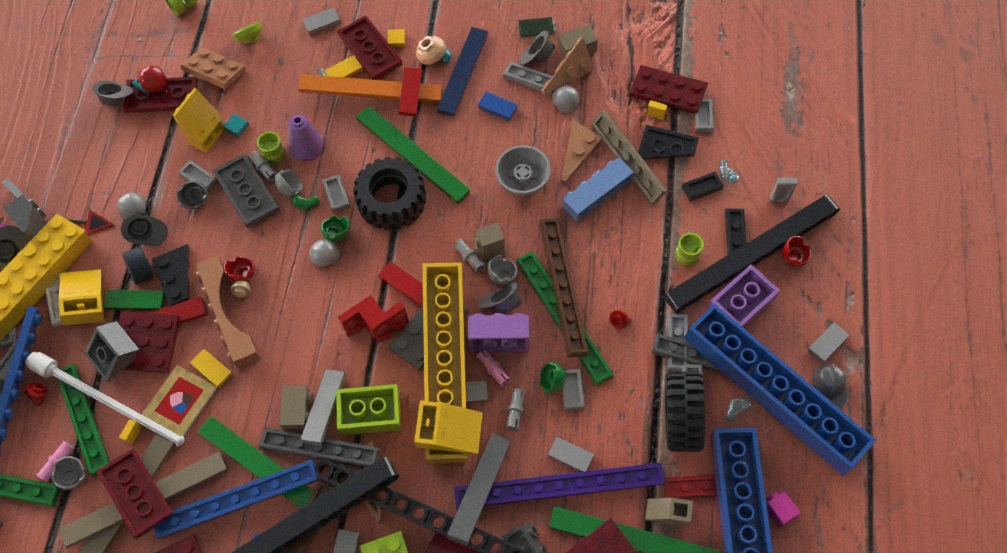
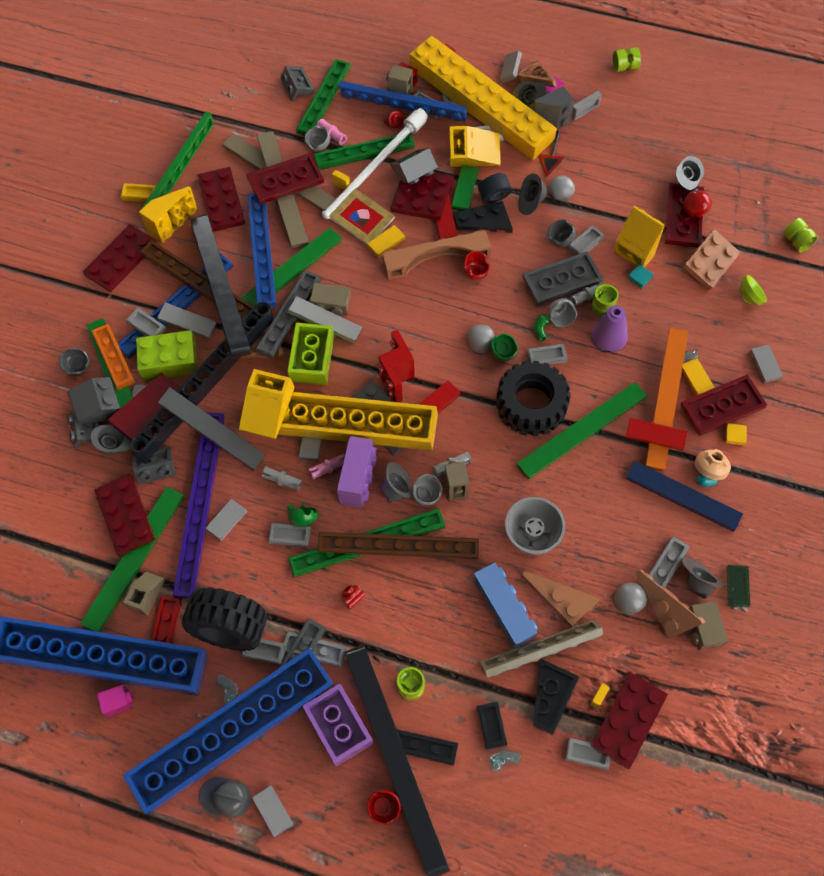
camera: 100 degrees right, 0 degrees up
(241, 289) = (456, 266): tan plate -> none
(497, 106) = (631, 523): blue tile -> none
(783, 189) = (461, 811): light grey tile -> none

